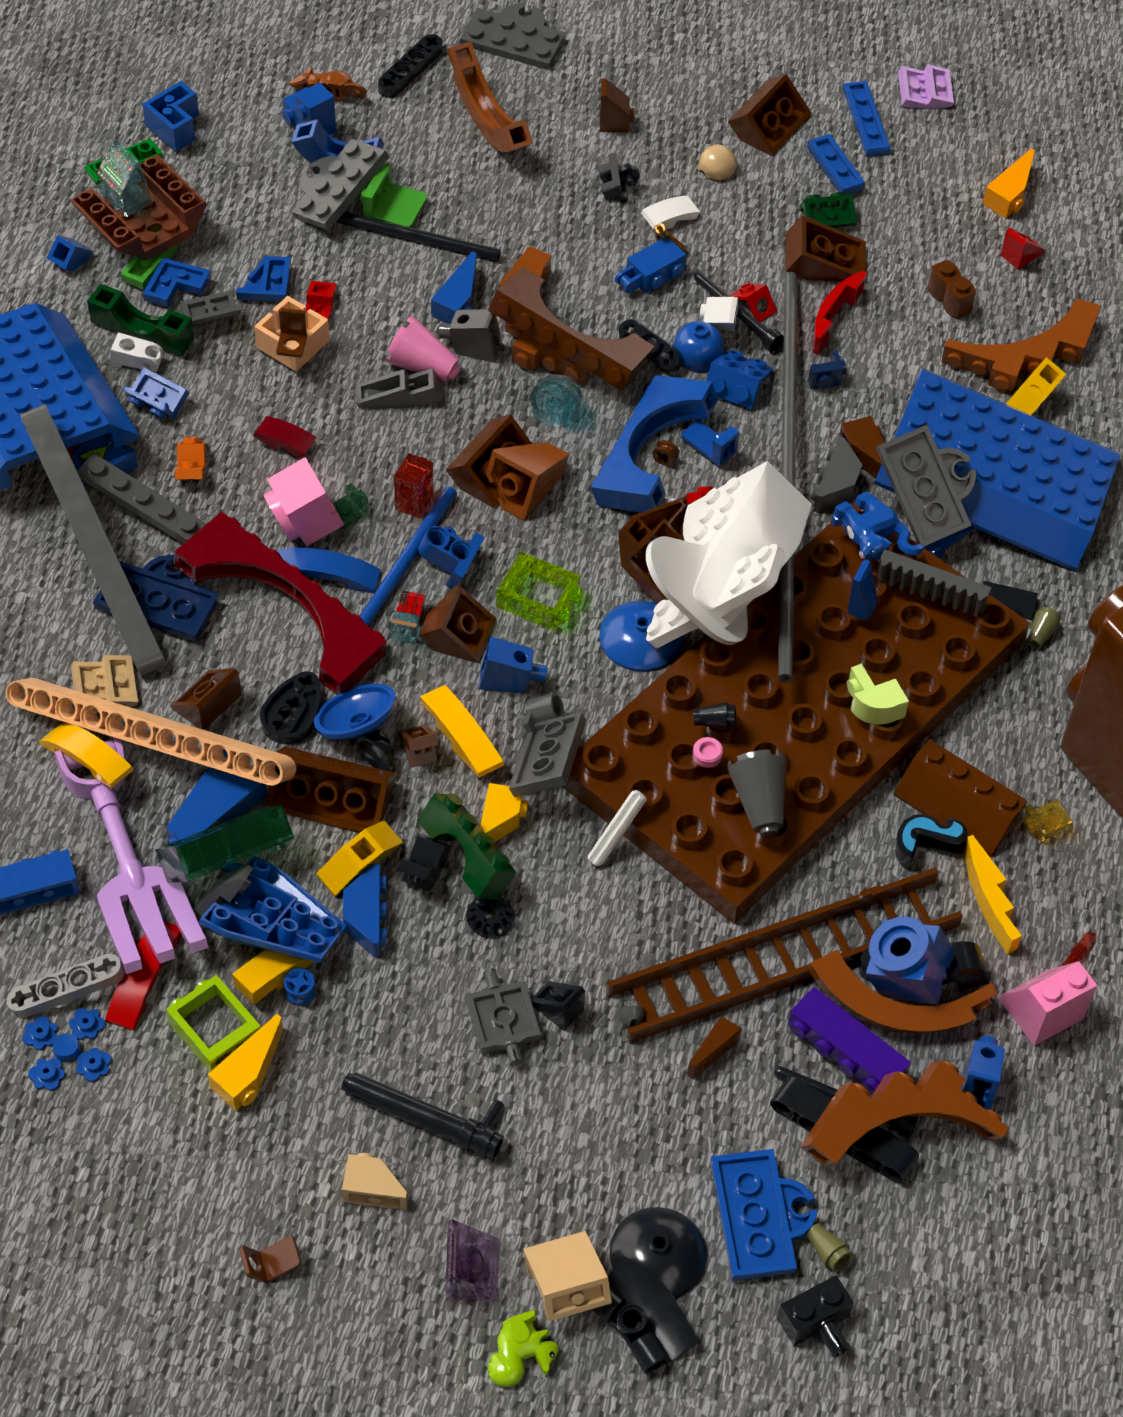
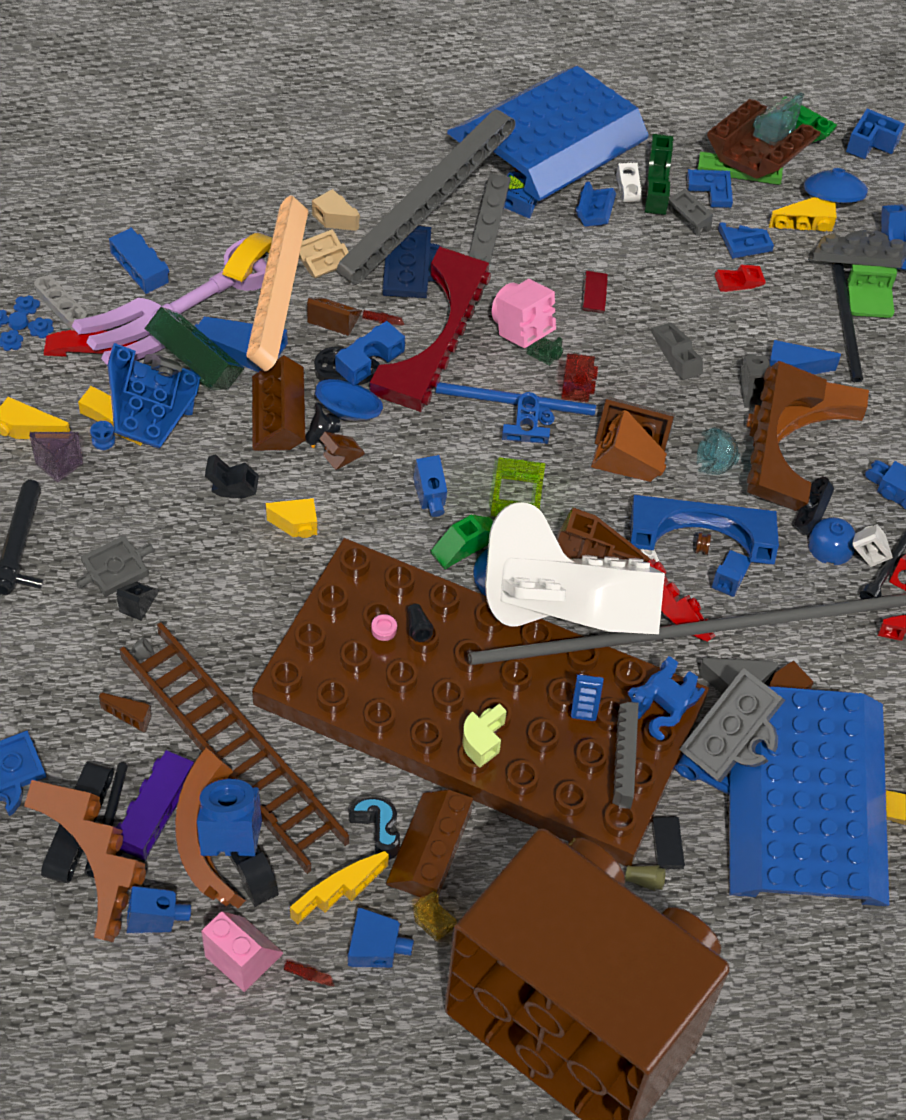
camera: 70 degrees right, 0 degrees up
(46, 651) = (335, 212): none -> tan slope
(68, 253) = (704, 117): blue brick -> none
(191, 458) = (547, 245): orange slope -> none
(201, 994) = (70, 404): lime window -> none
(231, 651) = (382, 317): none -> clear red piece
(233, 175) = (836, 186): none -> blue dish
(262, 207) = (805, 215): none -> yellow slope
(268, 339) = (693, 273): light nougat piece -> none
(294, 328) = (683, 256): reddish brown bracket -> none
(303, 690) = (381, 341): none -> blue arch
(322, 1040) = (57, 452): none -> clear purple slope
(333, 566) = (482, 353): blue slope -> none
(357, 856) = (226, 439): yellow slope -> none
(364, 910) = (178, 455): blue slope -> none
(408, 617) = (458, 413): leg -> none
(420, 350) = (719, 348): bright pink cone -> none
(458, 626) = (462, 446): reddish brown slope -> none
(462, 730) = (359, 474): yellow slope -> none
(486, 868) = (237, 508): dark green arch -> none
(495, 924) = (212, 543): black gear -> none
(548, 746) = (359, 527): dark grey hinge -> none
(592, 659) = (462, 540): none -> green slope
(617, 828) = (299, 590): white axle -> none
(738, 377) = (814, 572): blue bracket -> none
(761, 788) = (350, 667): dark grey cone -> none
(827, 374) = (852, 644): dark blue bracket -> none
(1060, 878) = (376, 941): none -> blue torso

